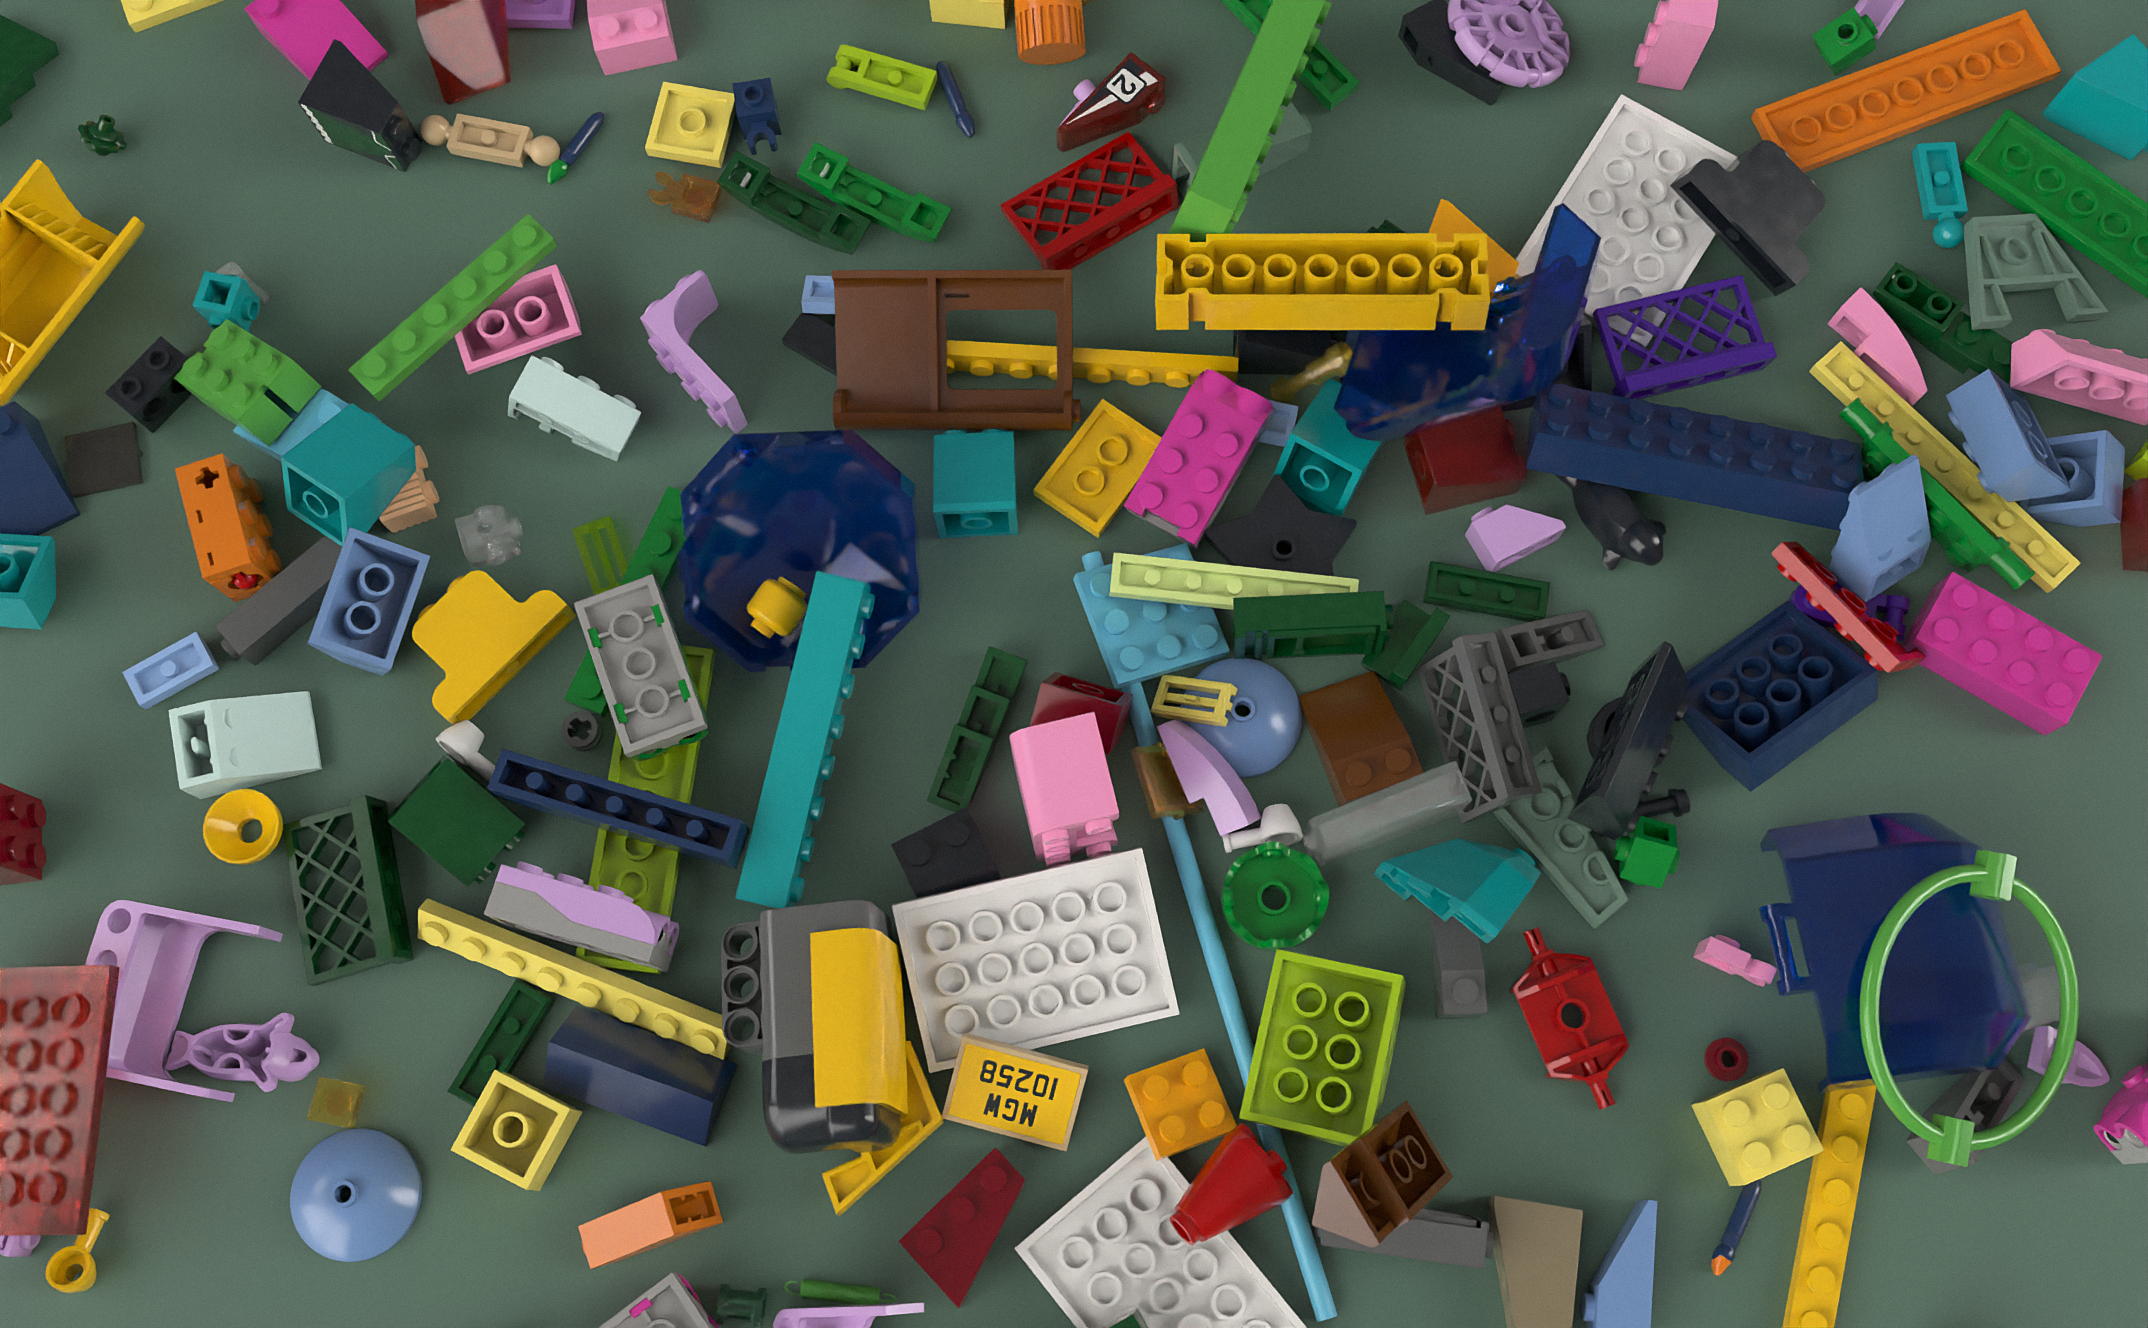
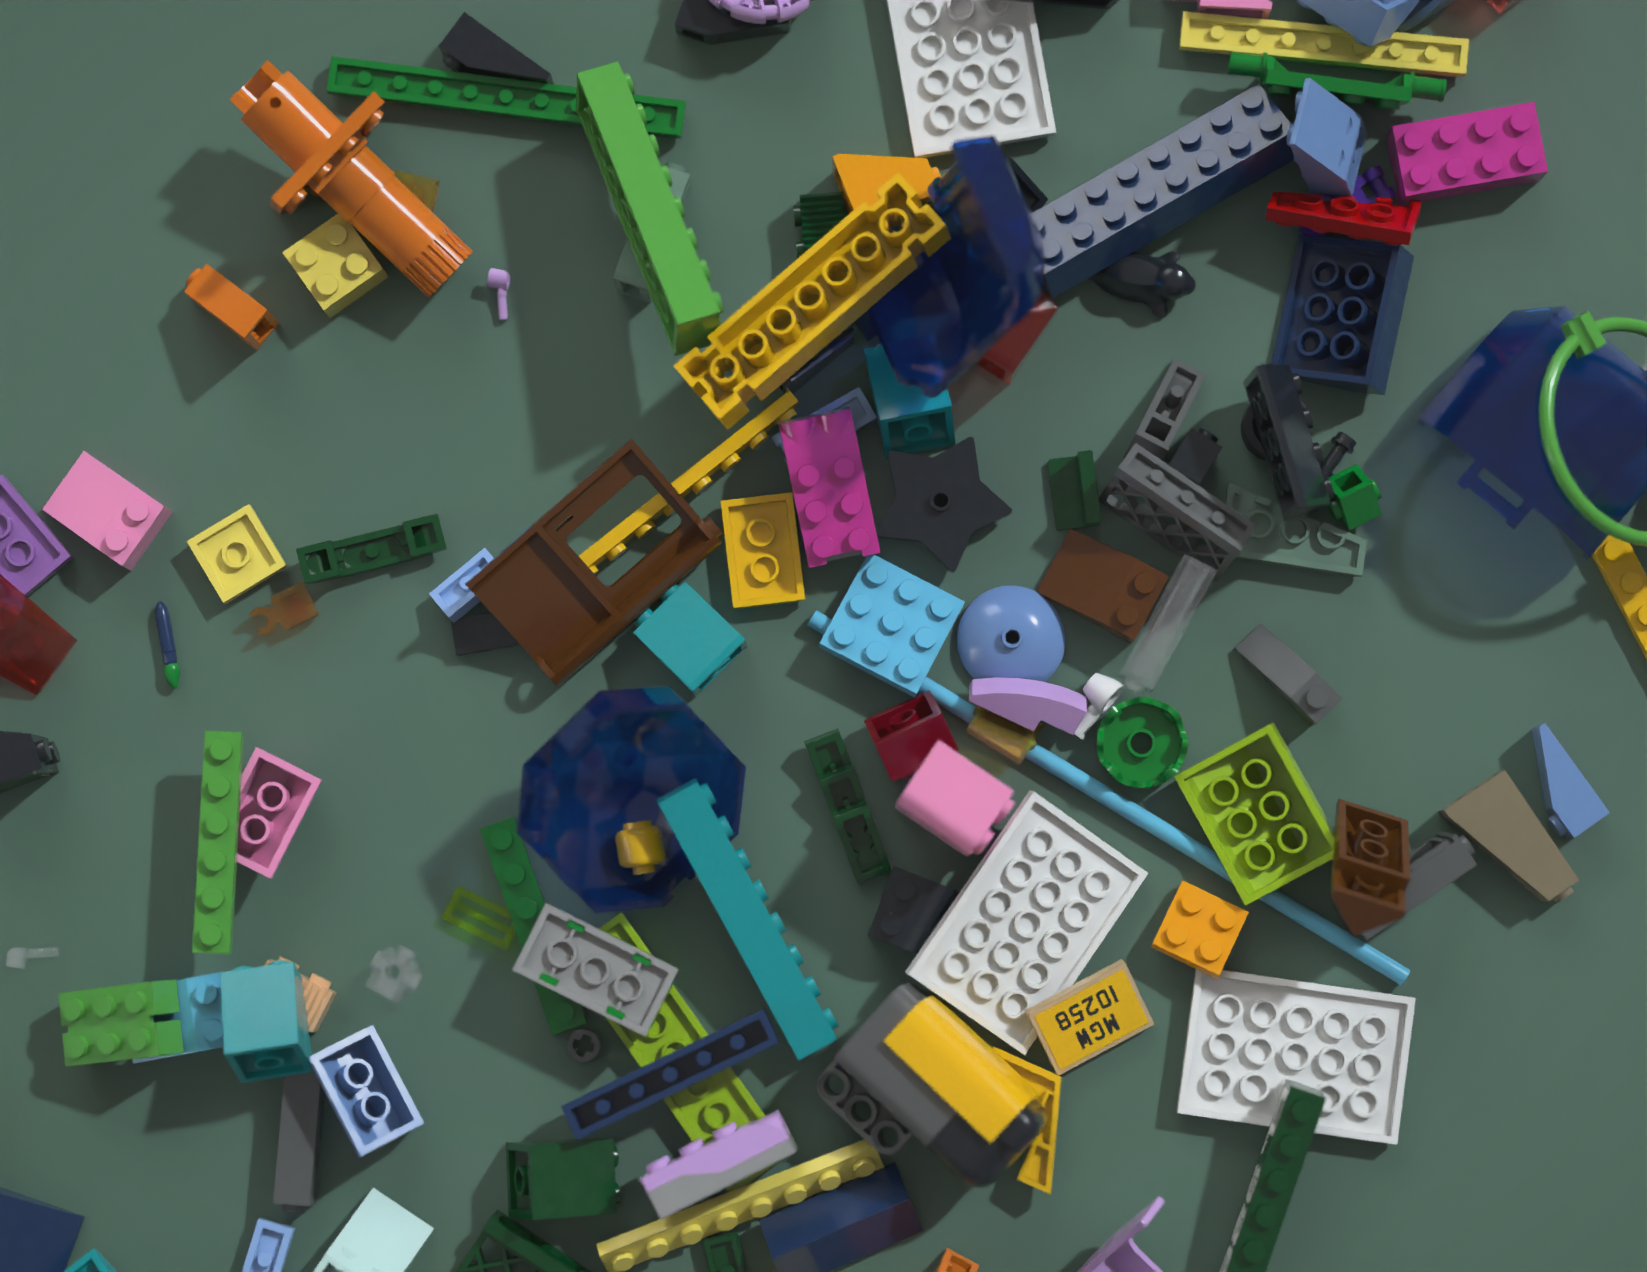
camera: 40 degrees left, 10 degrees up
(103, 459) = (62, 1165): clear smoke piece -> none
(149, 385) = (49, 1083): black brick -> none
(226, 298) = (29, 985): teal brick -> none
(228, 526) = (213, 1130): orange piece -> none
(463, 743) = (514, 1126): white bar -> none
(484, 639) = (458, 1046): yellow brick -> none
(489, 140) = (102, 695): tan plate -> none
(573, 407) = (363, 835): light aqua wedge -> none
(670, 327) = (379, 725): lavender bracket -> none
(757, 112) = (280, 505): dark blue brick -> none
(839, 1292) = (1093, 1238): bright green piece -> none
(872, 198) = (421, 492): green slope -> none
(882, 77) = (339, 395): lime plate -> none
(963, 118) = (427, 376): dark blue piece -> none
(964, 1225) = (1134, 1126): dark red wedge -> none
(1106, 223) = (607, 361): red fence -> none
(1116, 104) = (529, 263): clear red slope -> none
(1211, 583) = (934, 560): yellowish green plate -> none
(1219, 705) = (996, 647): light yellow tile -> none
(1231, 1188) = (1279, 954): red cone -> none
(1311, 625) = (1007, 539): dark green door -> none
(1316, 372) = (861, 337): clear yellow piece -> none
(1464, 880) = (1257, 624): teal brick -> none
(1486, 592) = (1097, 406): dark green tile -> none
(1510, 535) = (1079, 354): lavender slope -> none
(1569, 1052) = (1363, 650): red plate -> none
(1701, 366) = (1105, 113): dark purple fence -> none
(1713, 1061) = (1505, 597): dark red plate -> none
(1724, 1252) = (1605, 692): dark blue piece -> none
(1725, 955) = (1457, 520): bright pink plate -> none
(1757, 1127) = (1567, 618): light yellow brick -> none

